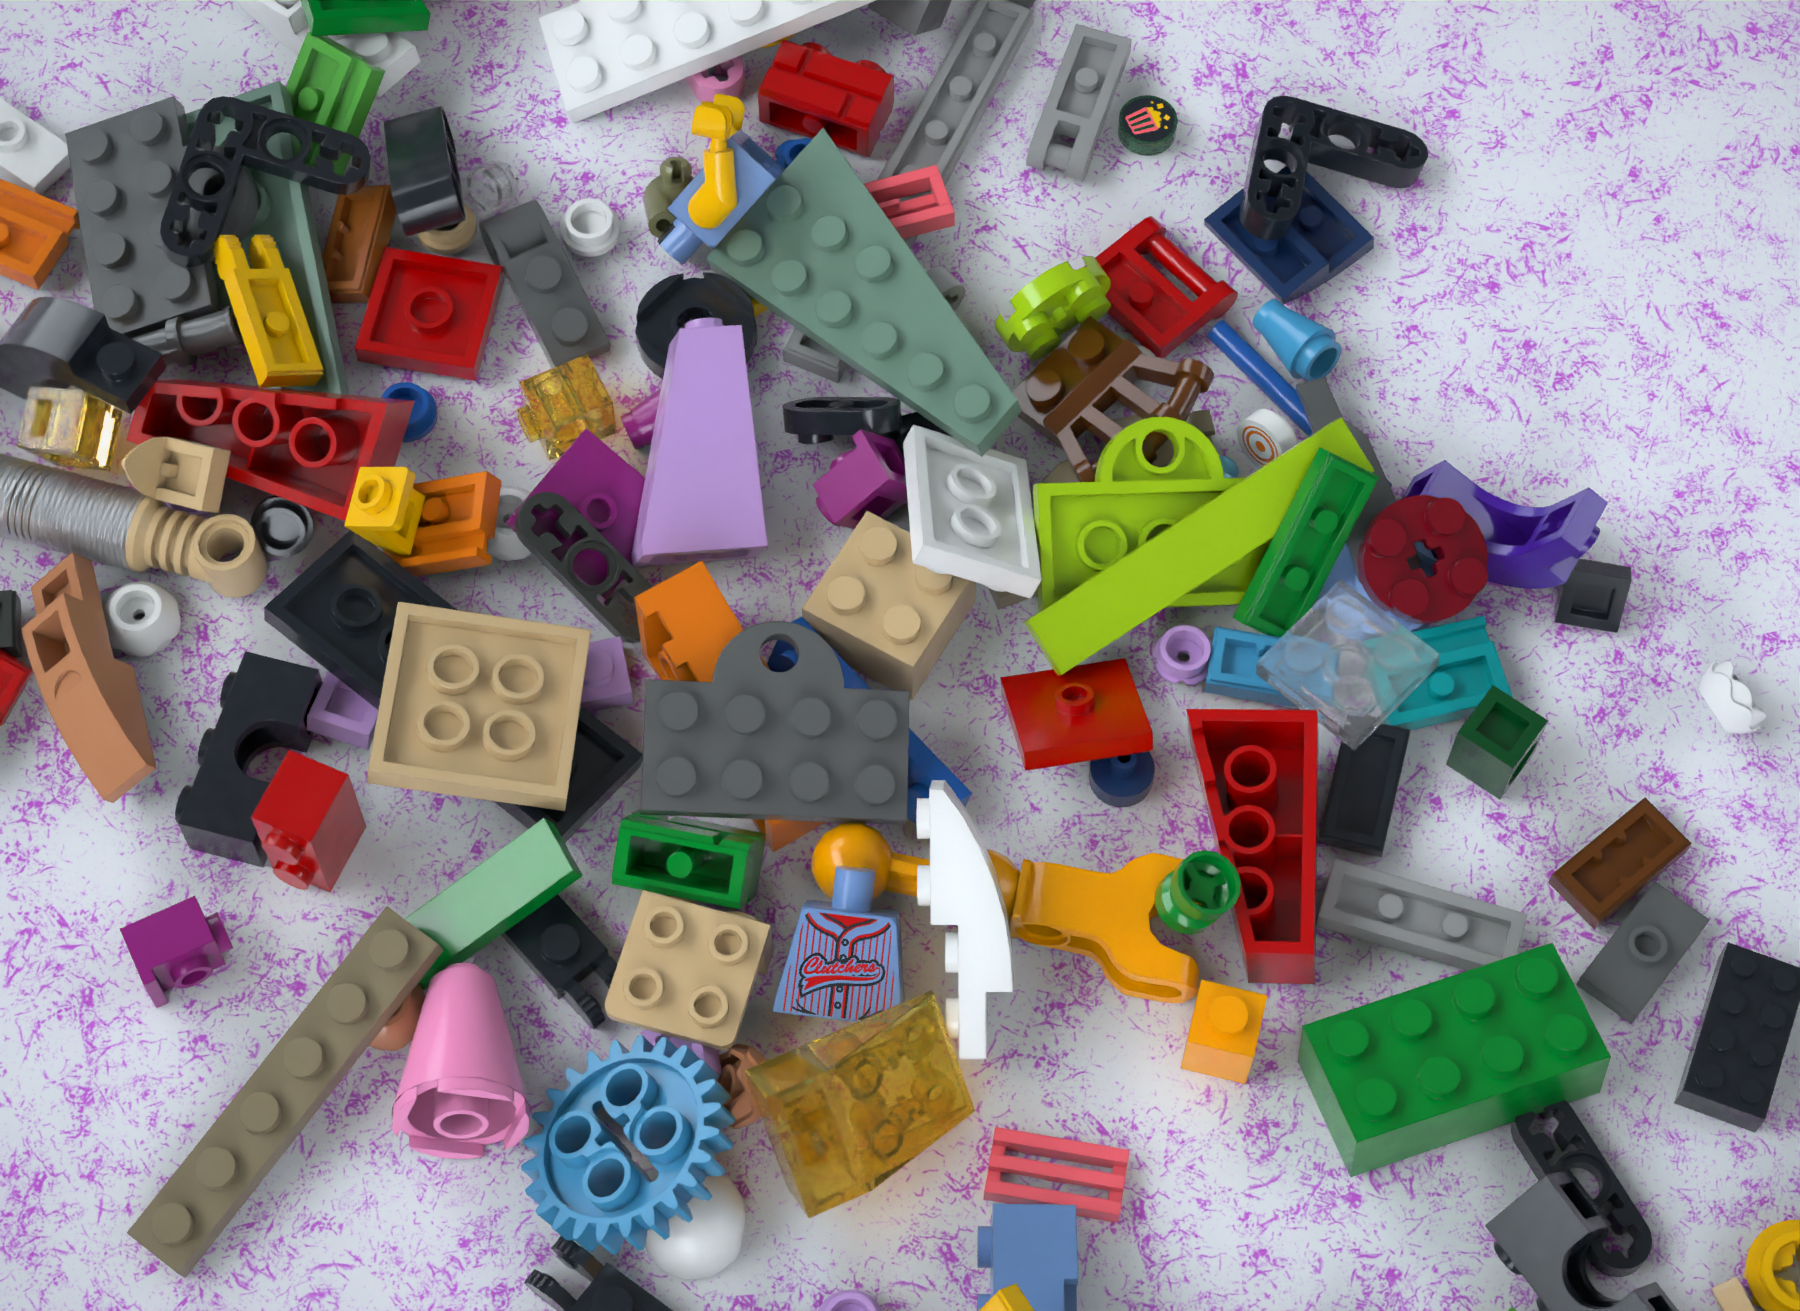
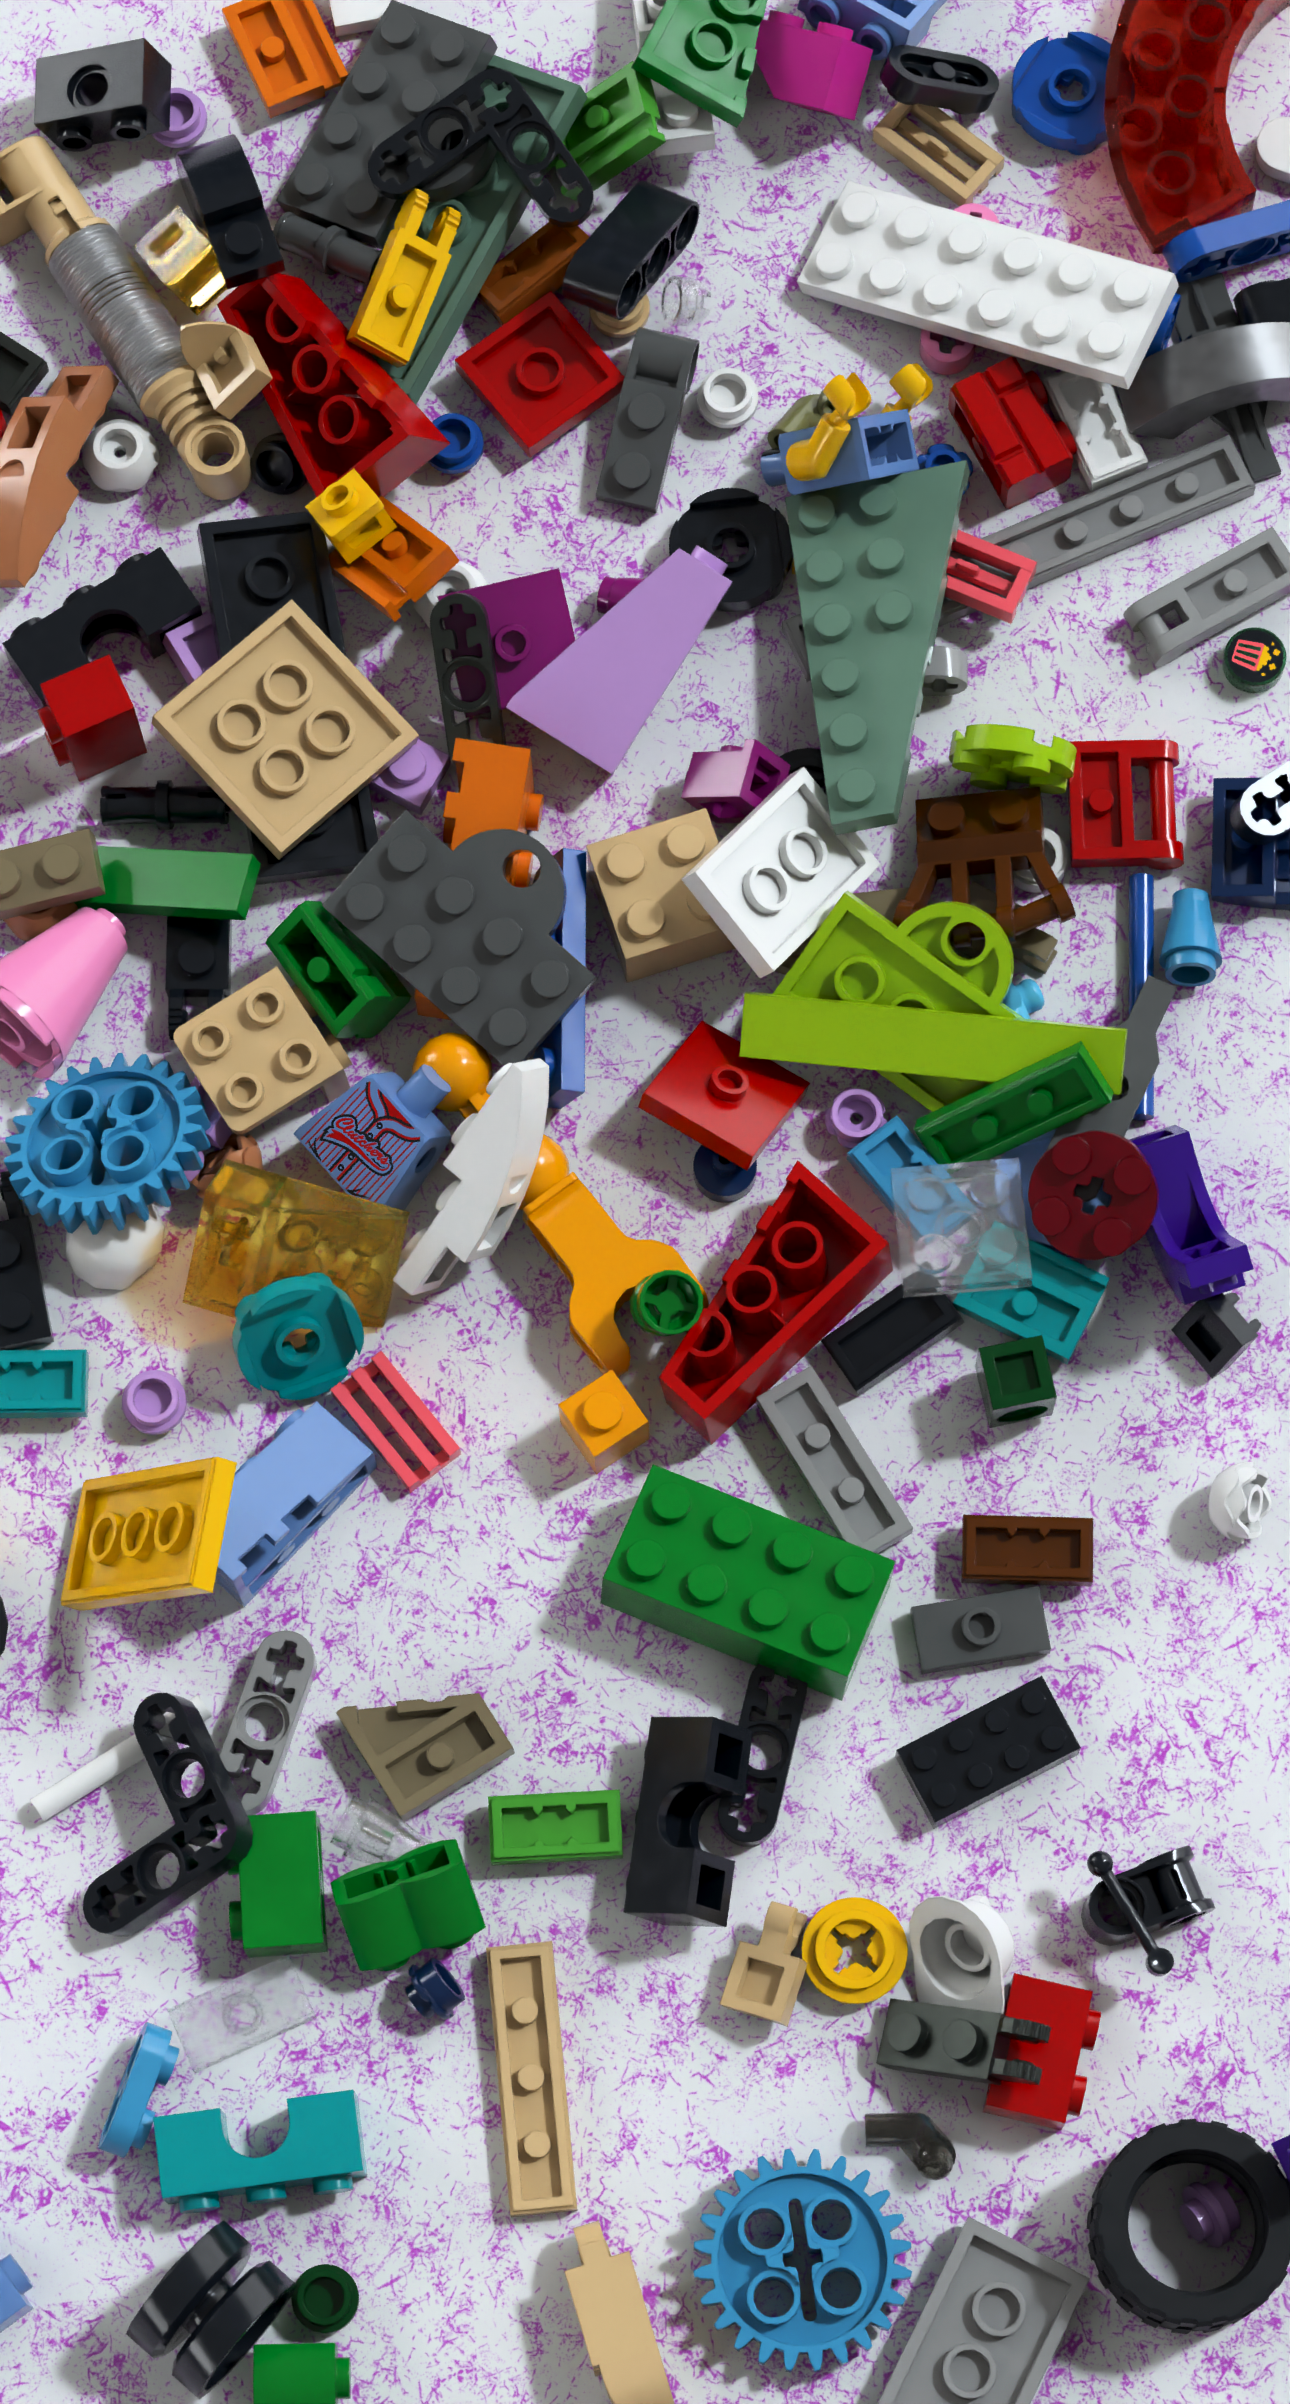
camera: 45 degrees right, 10 degrees up
(423, 850) = (162, 805): none -> black pin
(564, 404) = (571, 536): clear yellow brick -> none
(821, 418) = (769, 714): black plate -> none
(897, 1160) = (290, 1305): none -> teal plate
(900, 53) = (1098, 426): none -> white plate
(1265, 436) = (1086, 998): white tile -> none

